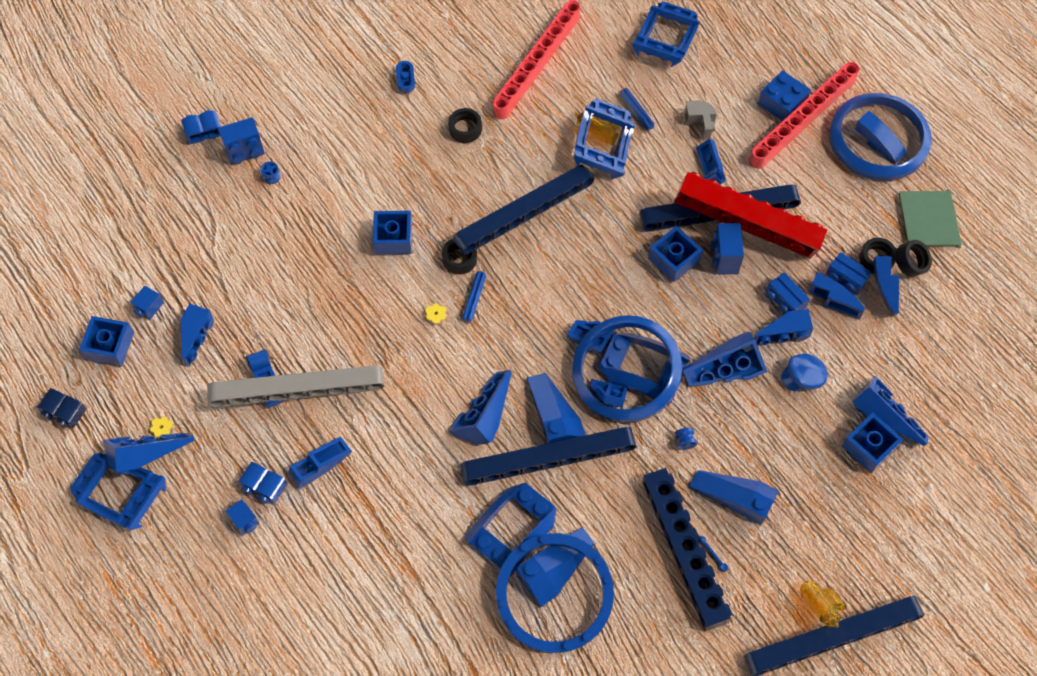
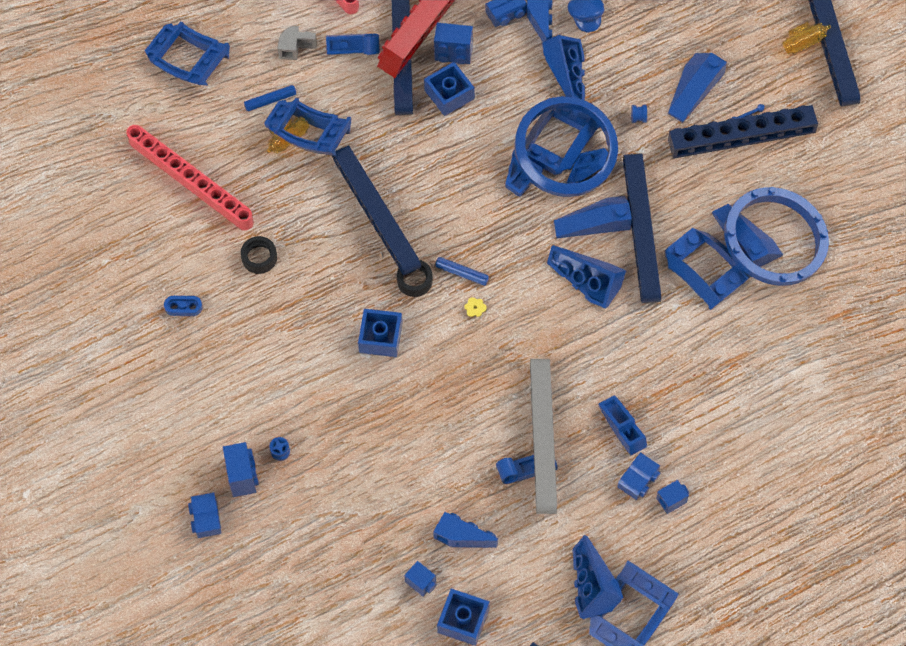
camera: 80 degrees left, 0 degrees up
(158, 424) = (562, 566): light yellow plant -> none

